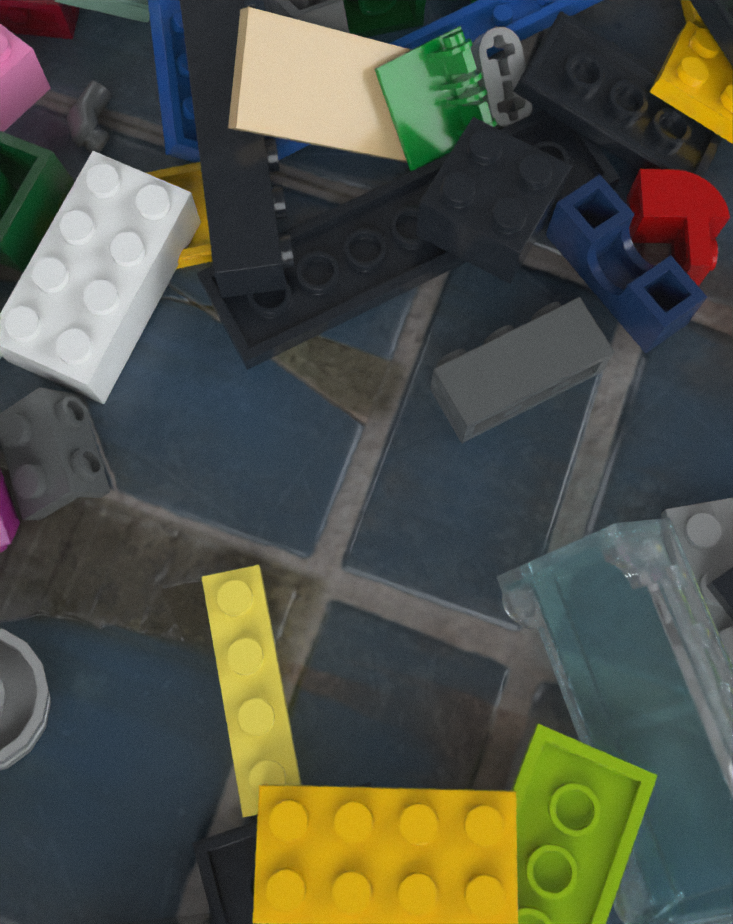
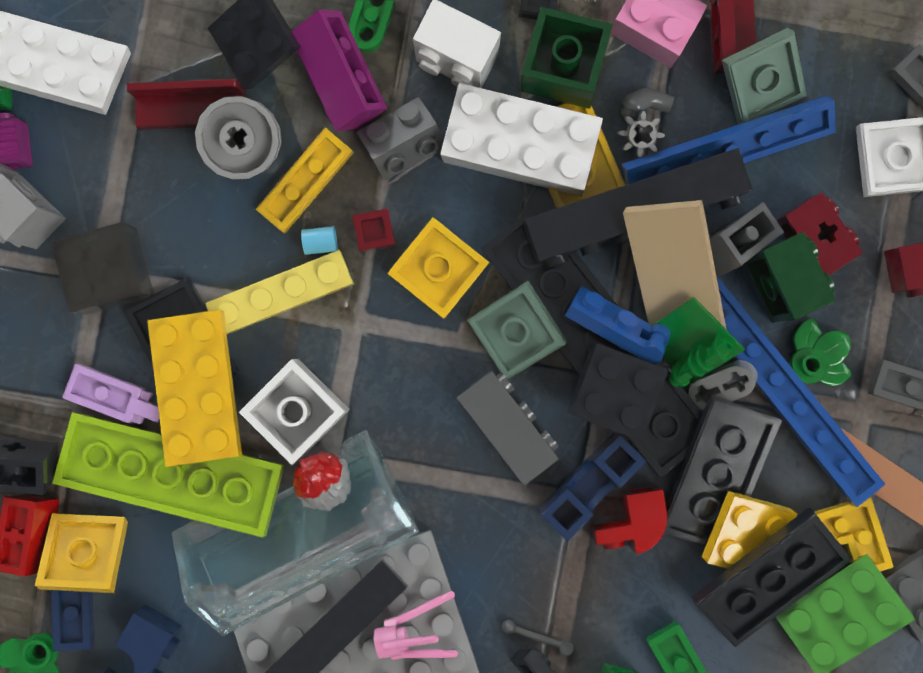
camera: 80 degrees right, 15 degrees up
(79, 618) = (304, 180): none -> yellow tile
(130, 126) = (630, 133): none -> light grey gear
(179, 606) = (319, 240): none -> medium azure hinge
(182, 517) = (373, 230): none -> dark red plate
(262, 431) = (438, 268): none -> yellow plate
(377, 332) = (517, 330): none -> sand green tile
(397, 184) = (619, 326): none -> blue plate
(452, 685) = (294, 410): none -> white brick
(573, 656) = (322, 481): none -> red piece

